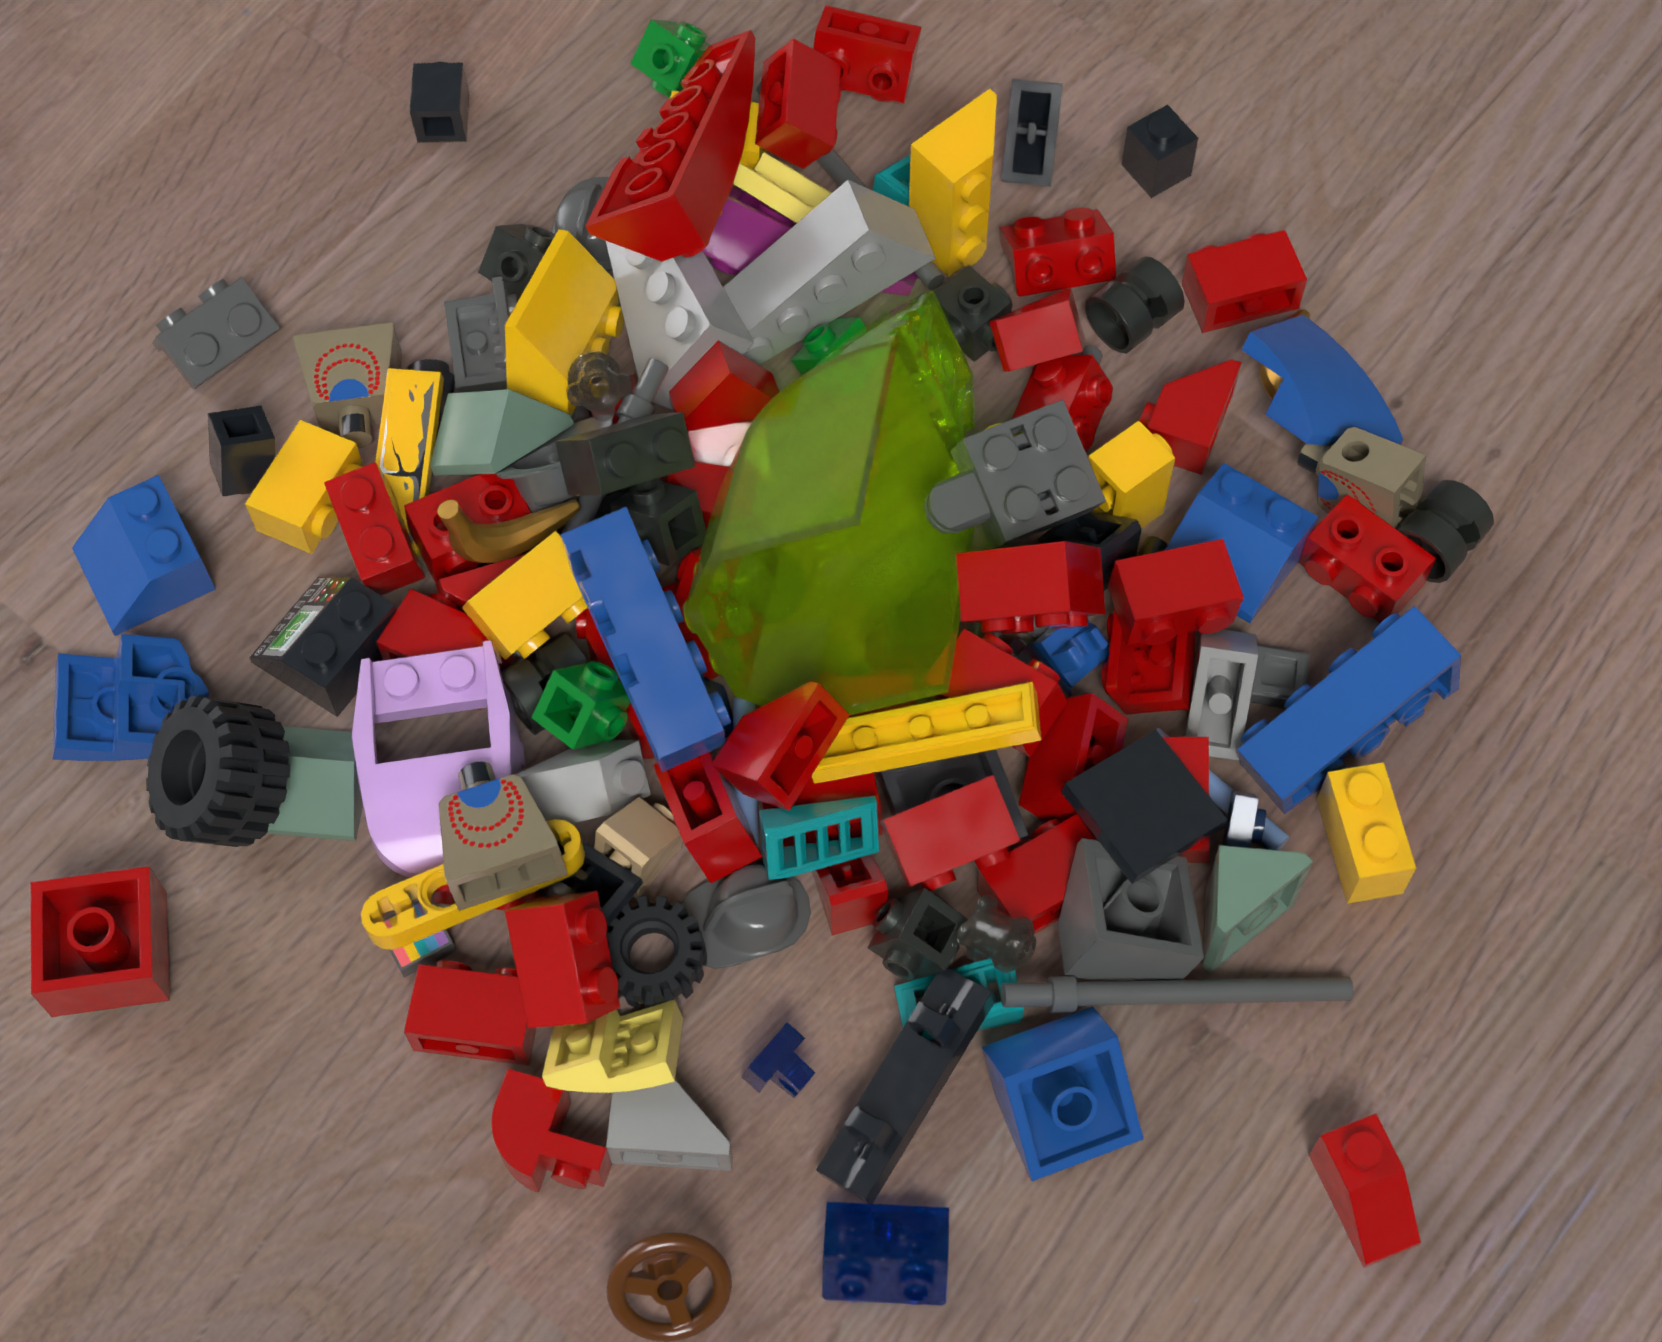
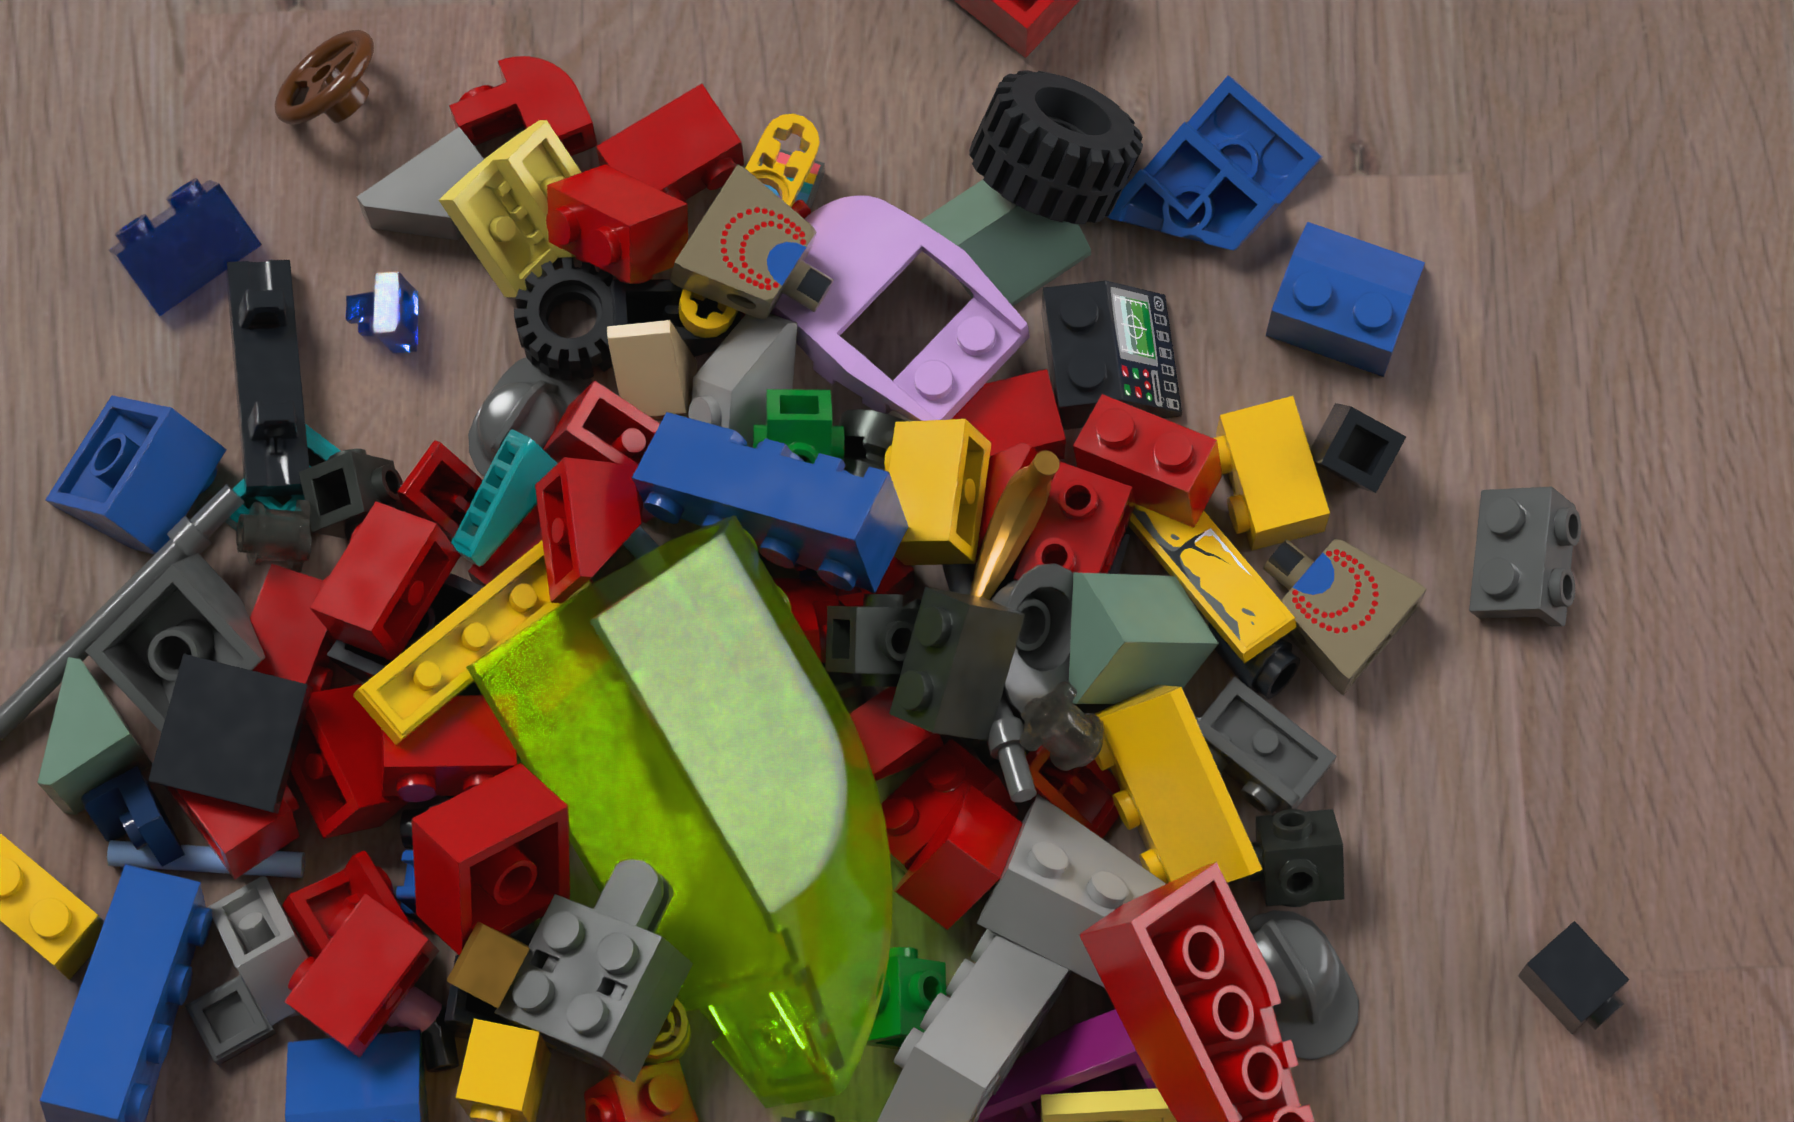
camera: 140 degrees right, 10 degrees up
(1084, 519) = (488, 964): none -> pearl gold slope

